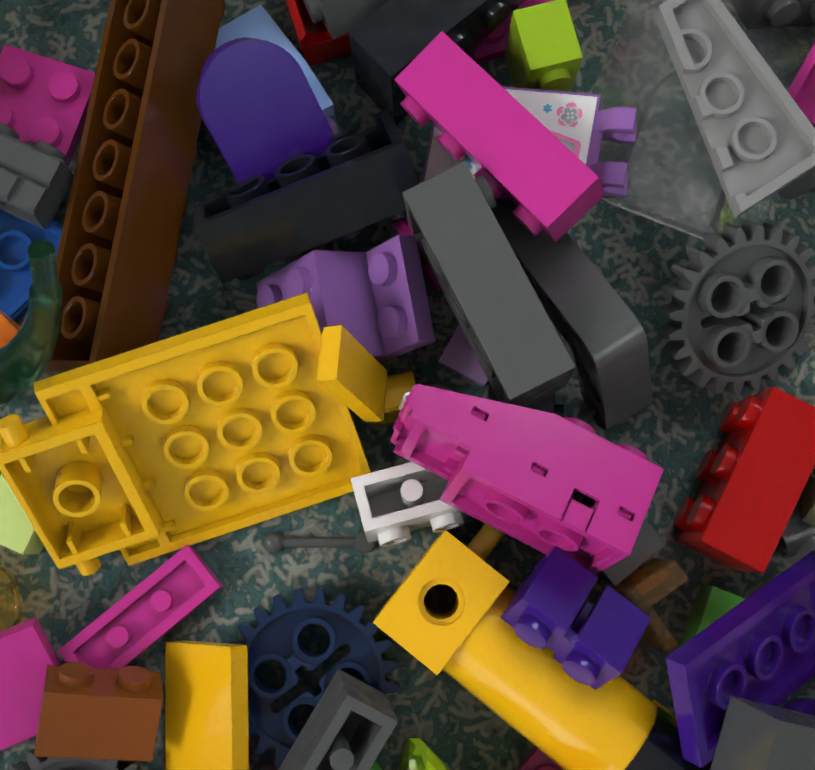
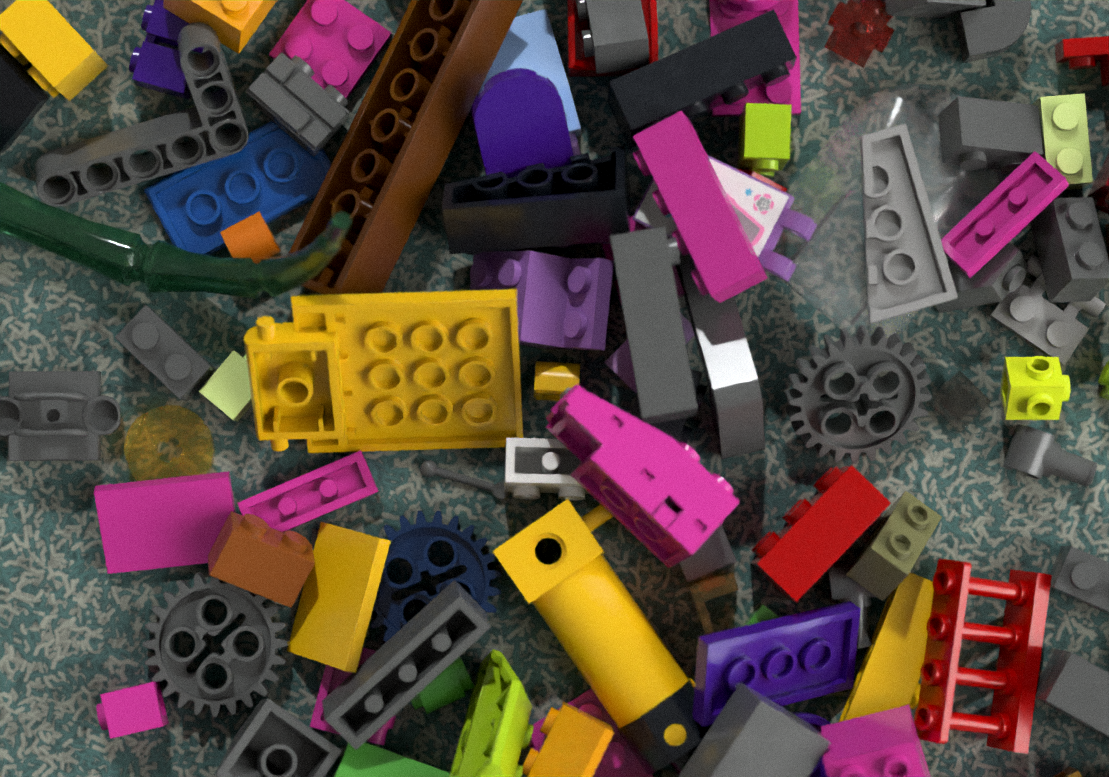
camera: 10 degrees right, 5 degrees up
(352, 374) = (532, 359): yellow tile -> none
(586, 637) = (659, 610): dark purple piece -> none

